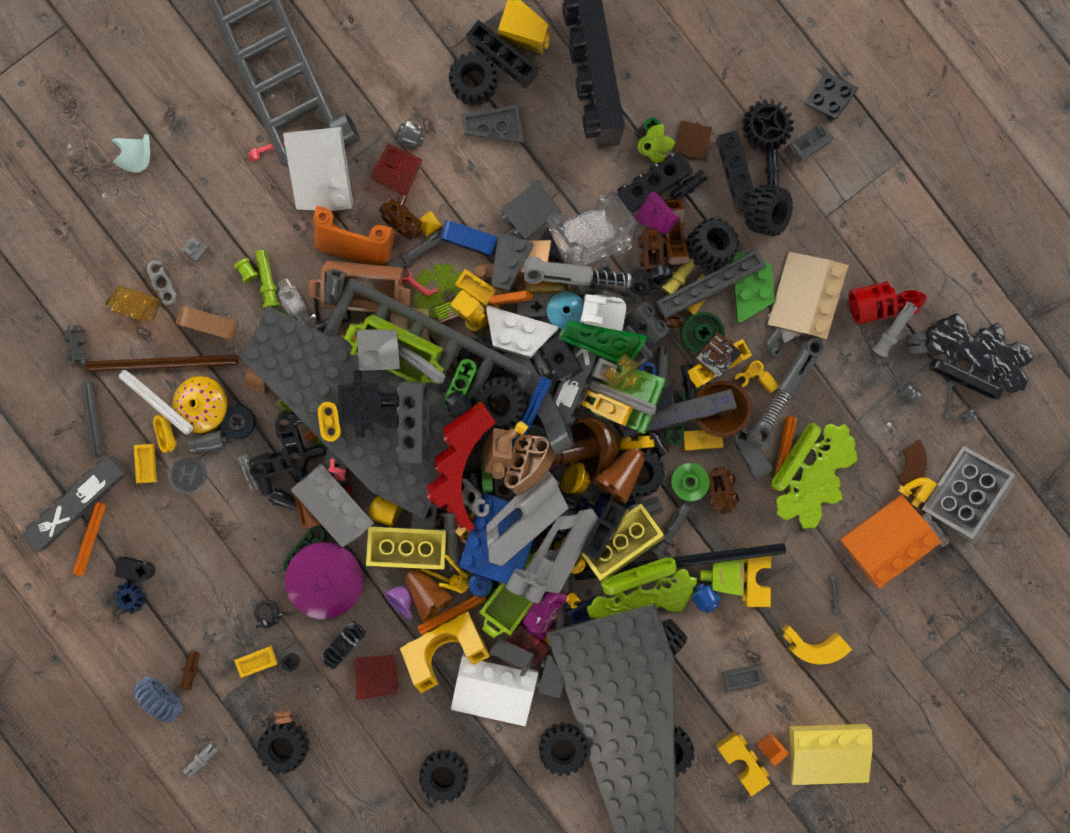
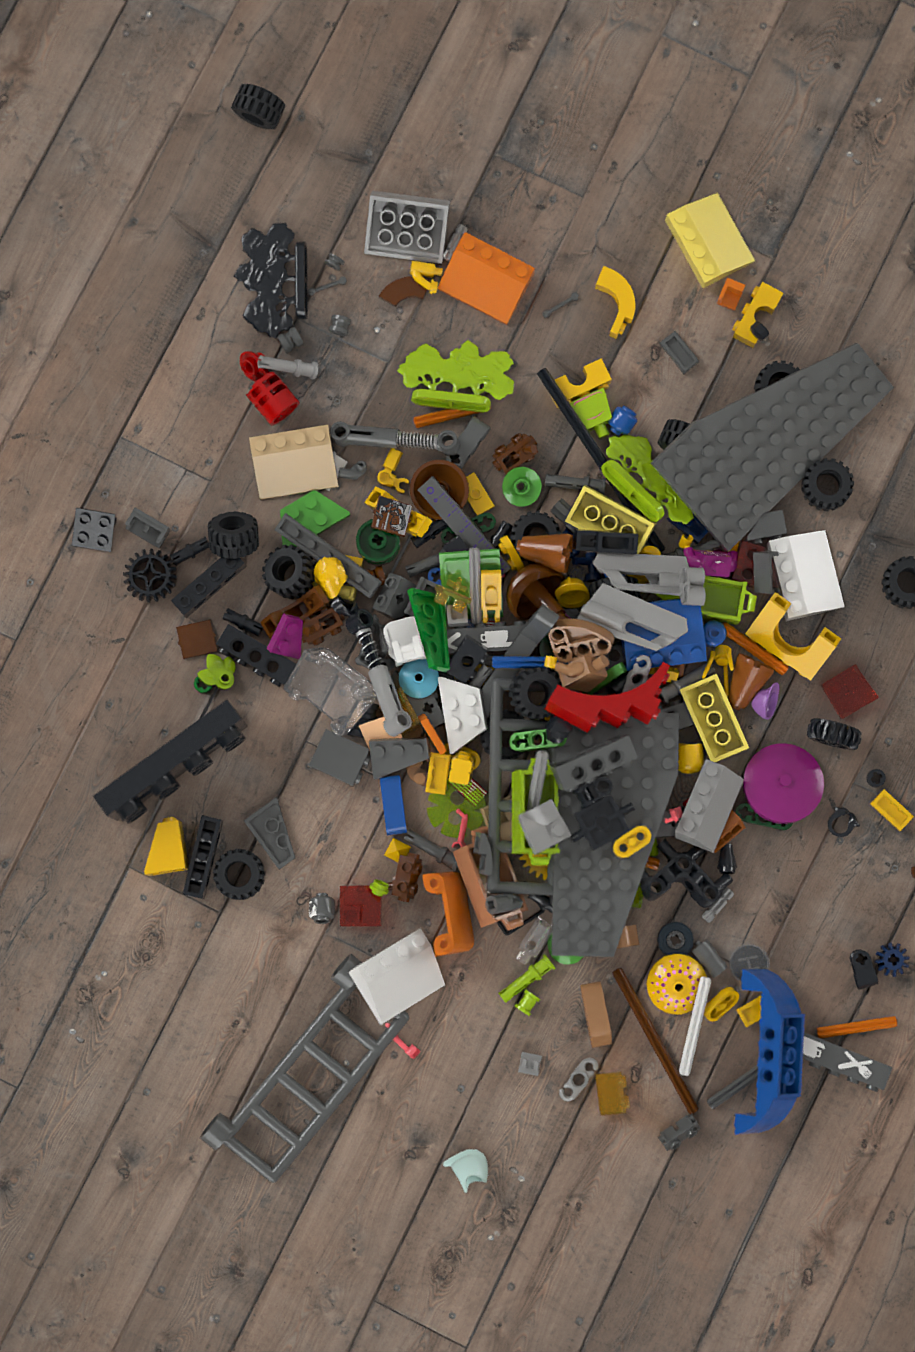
camera: 110 degrees left, 5 degrees down
(97, 462) = (779, 1052): none -> blue slope
(388, 289) = (483, 847): none -> dark grey slope
(403, 191) = (379, 887): none -> lime plate
(692, 276) = (330, 575): none -> yellow hair
(727, 758) = (759, 331): none -> black tile

